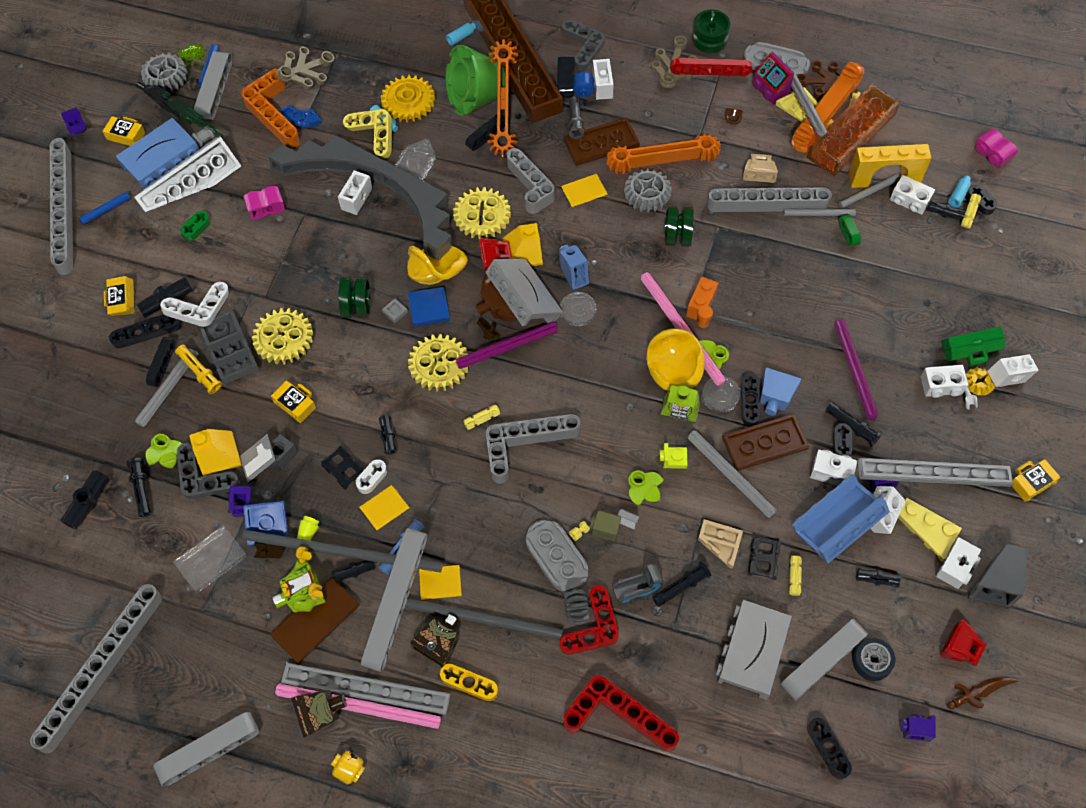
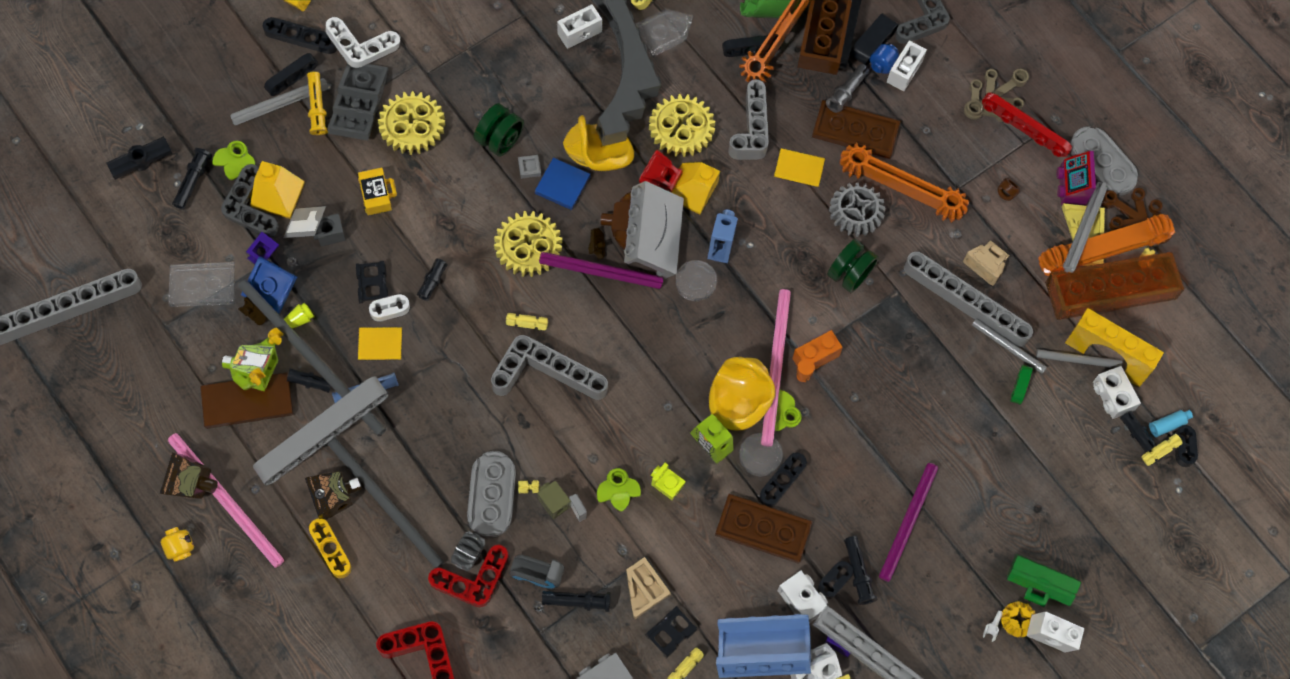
camera: 30 degrees right, 5 degrees up
(152, 303) = (348, 14): black piece -> none
(206, 749) = (80, 445): light grey beam -> none
(367, 689) = (243, 491): light grey tile -> none
(442, 584) = (374, 448): yellow sticker -> none
(711, 31) = (1059, 86): dark green wheel -> none
(732, 474) = (707, 535): light grey axle -> none
(777, 390) = (814, 489): medium blue torso -> none
(943, 376) = (984, 588): white brick -> none
(995, 148) = (1247, 404): dark pink brick -> none

